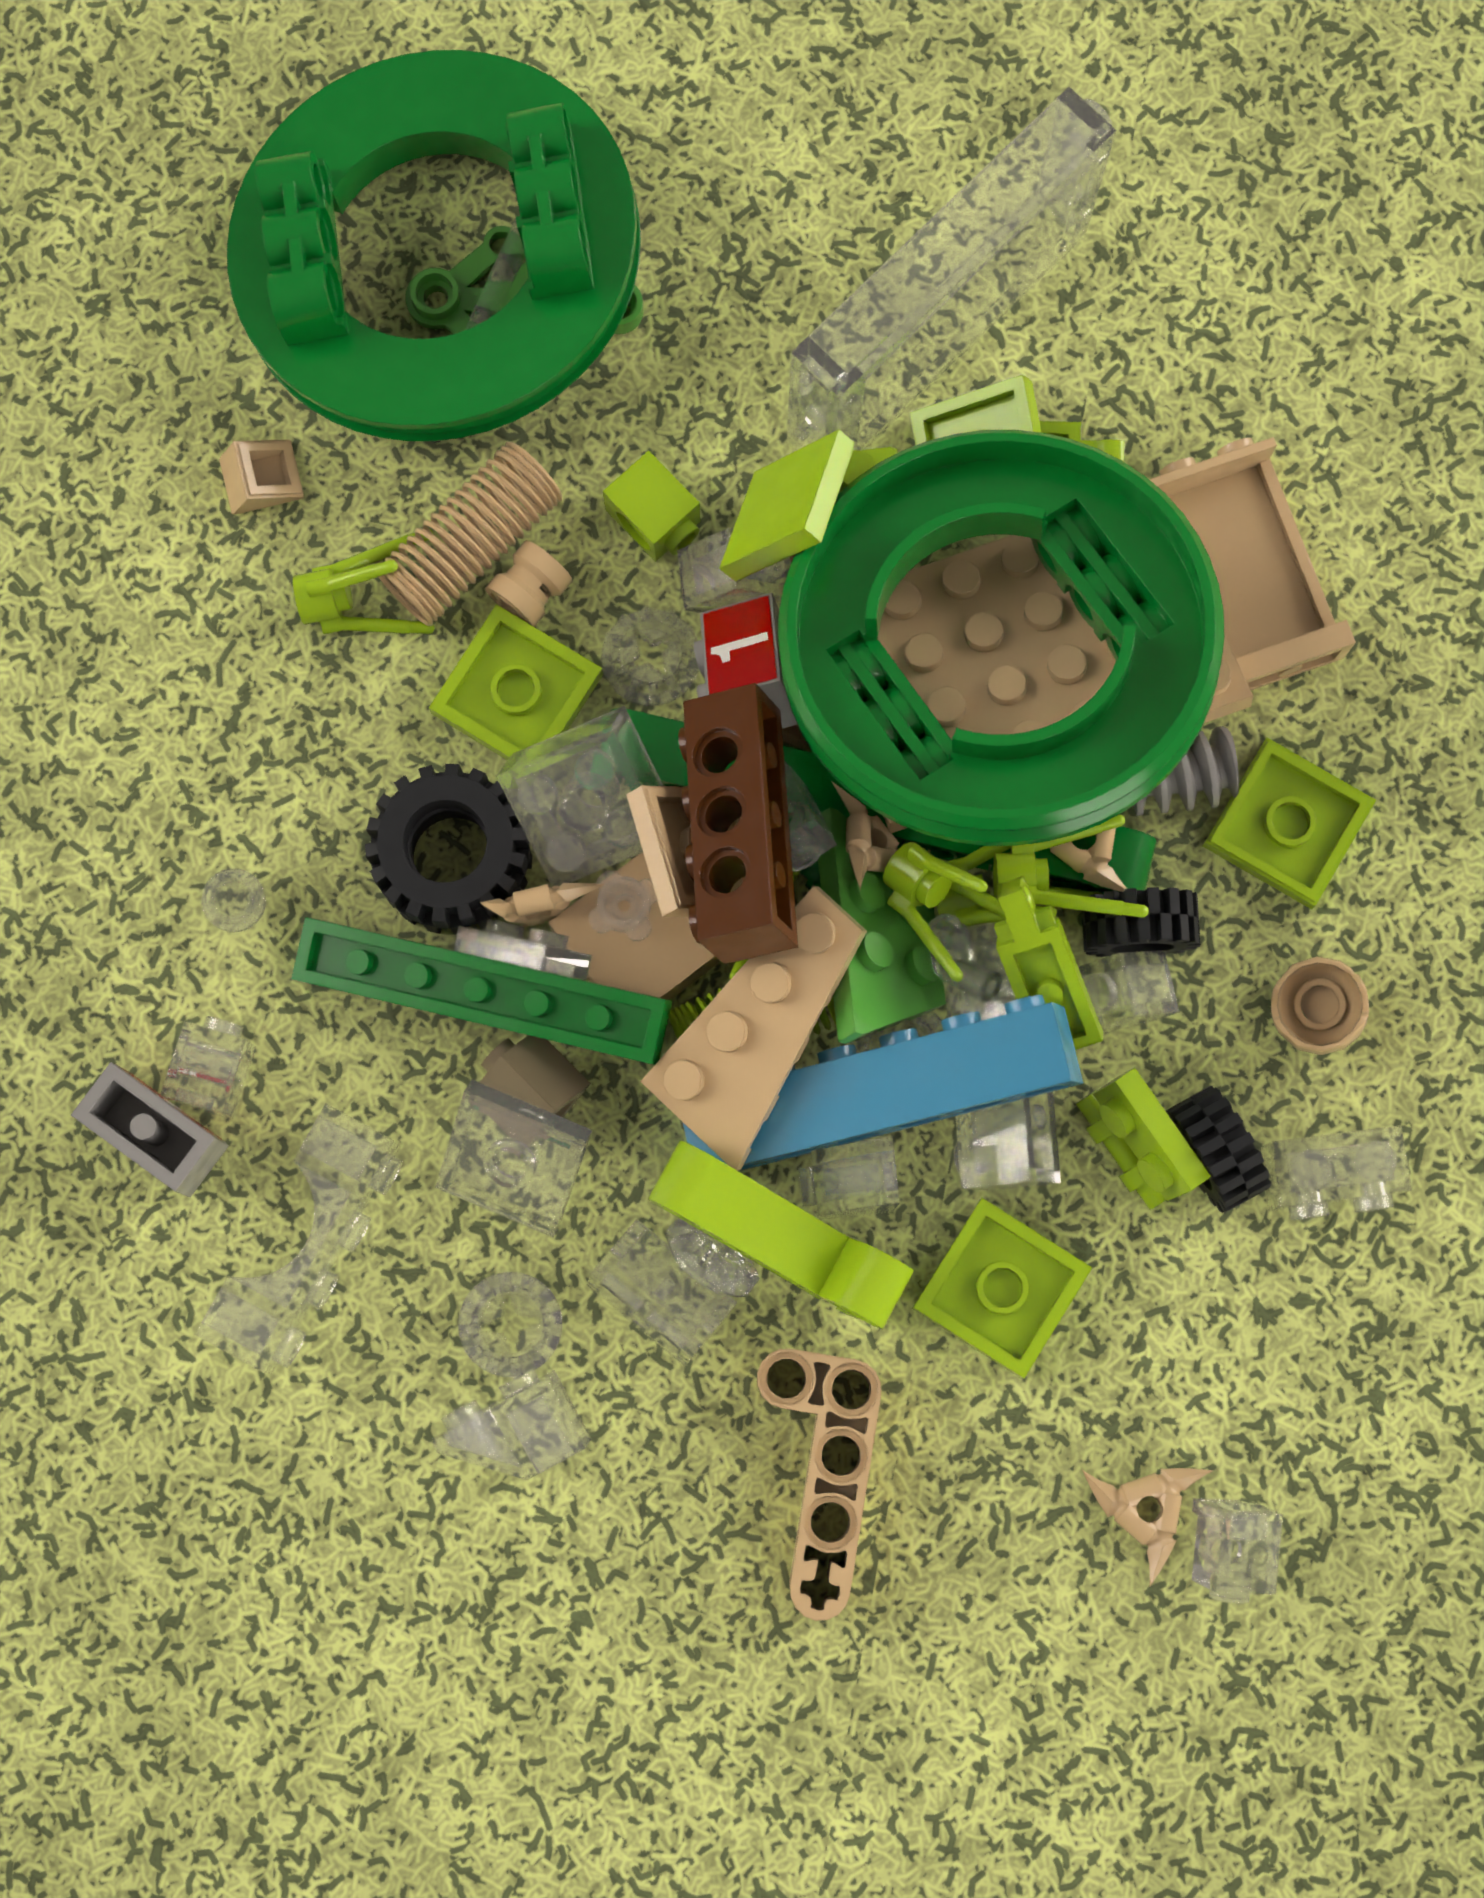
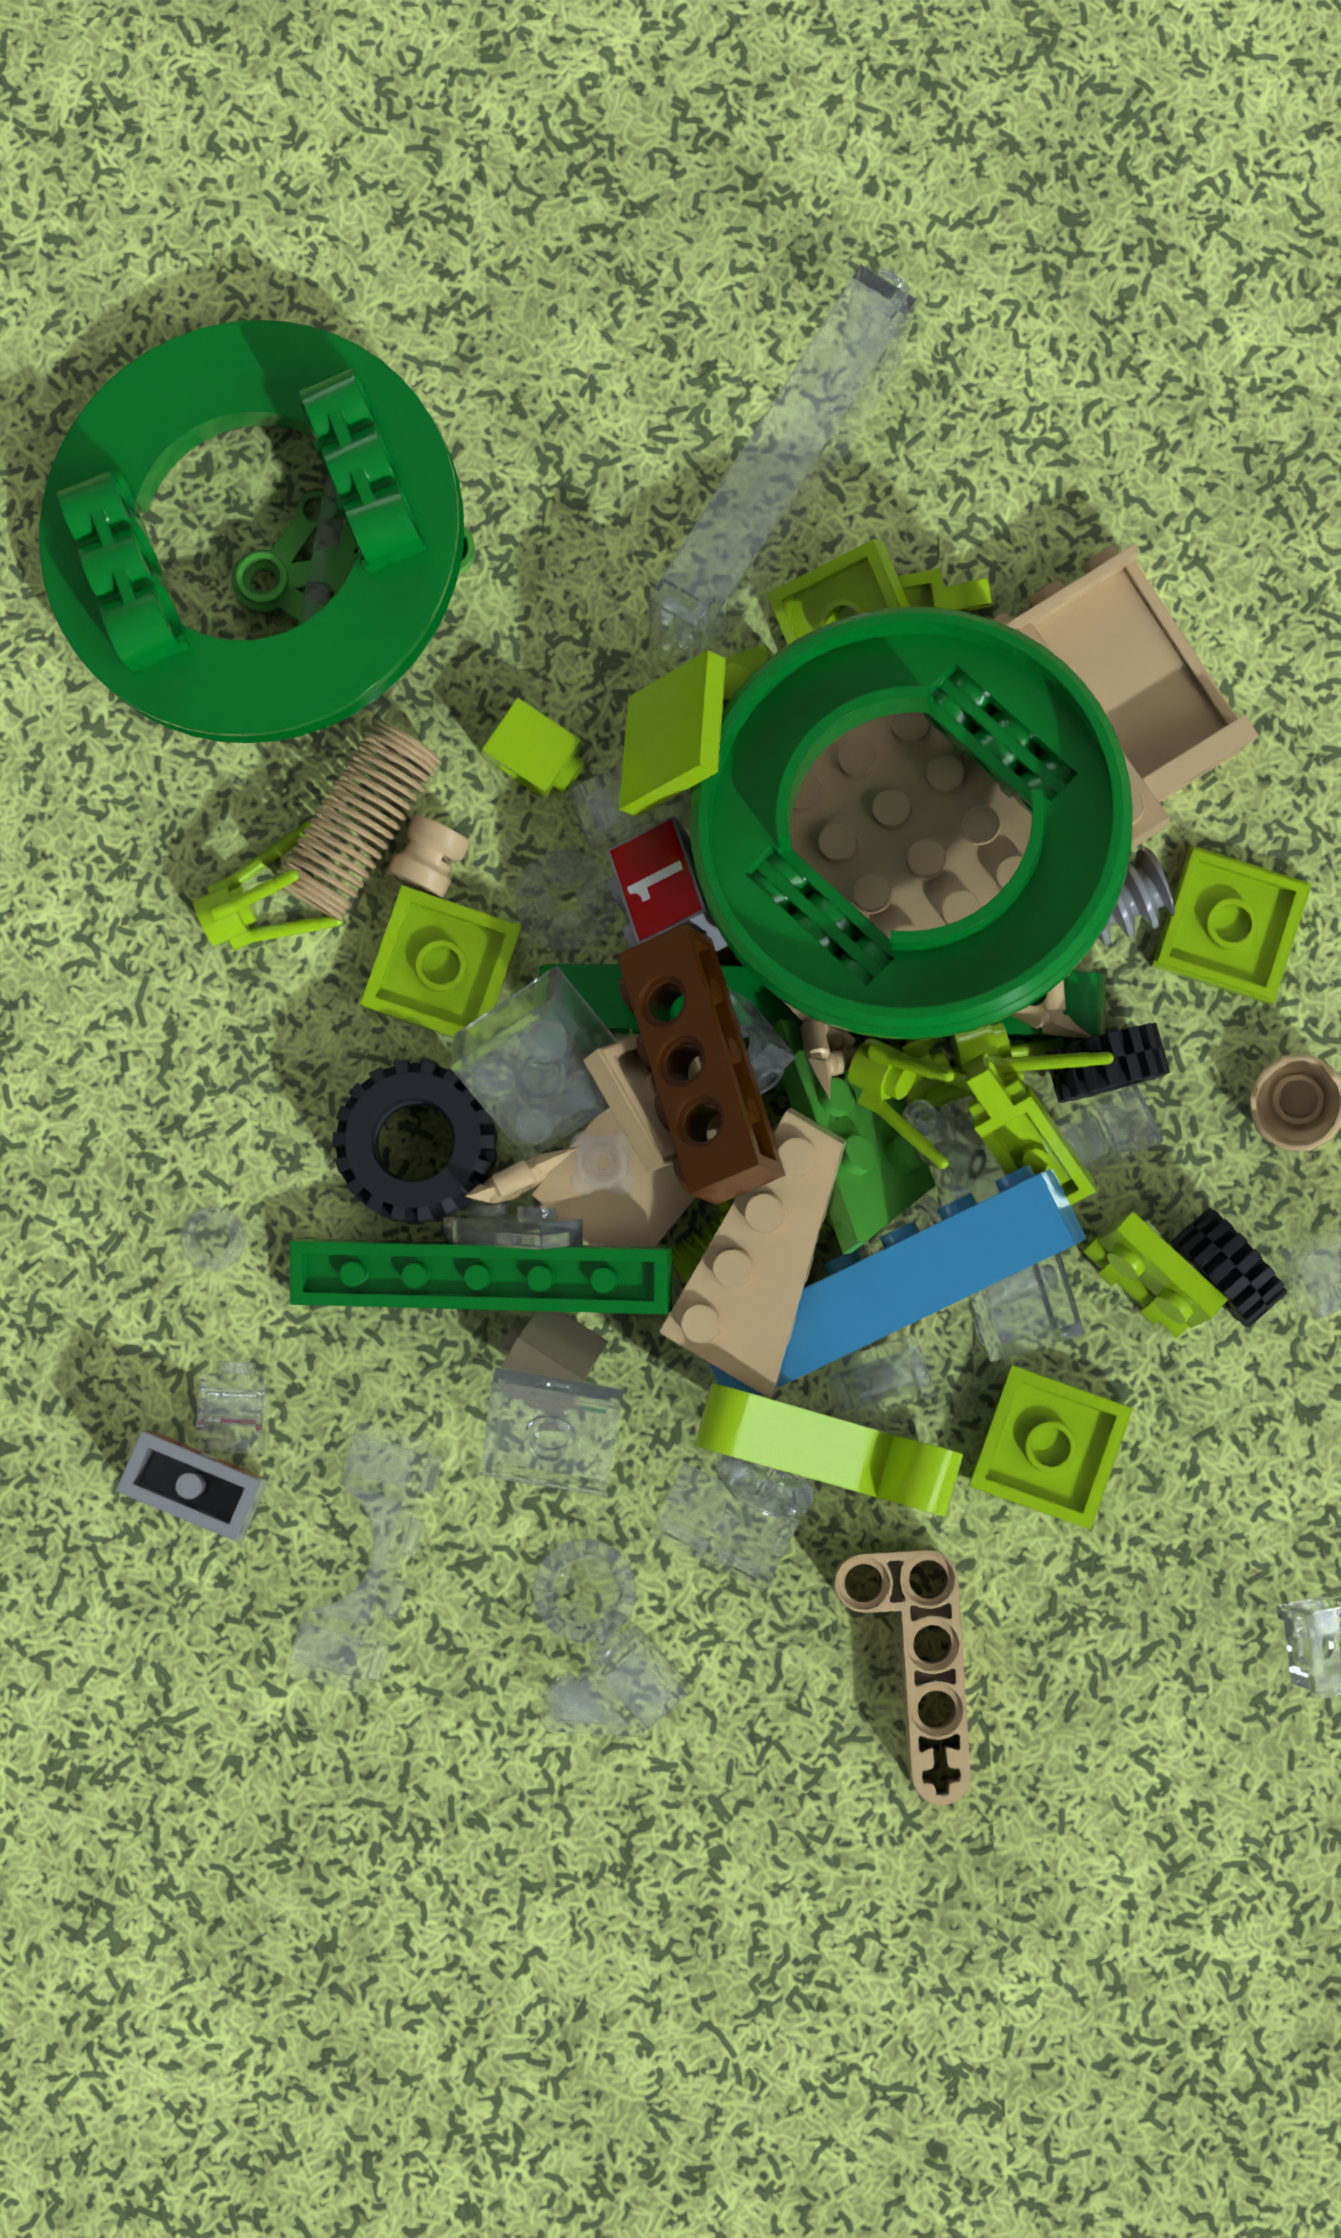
camera: 15 degrees left, 5 degrees up
(260, 474) = (131, 802): tan slope -> none
(1123, 1502) = (1211, 1623): tan piece -> none

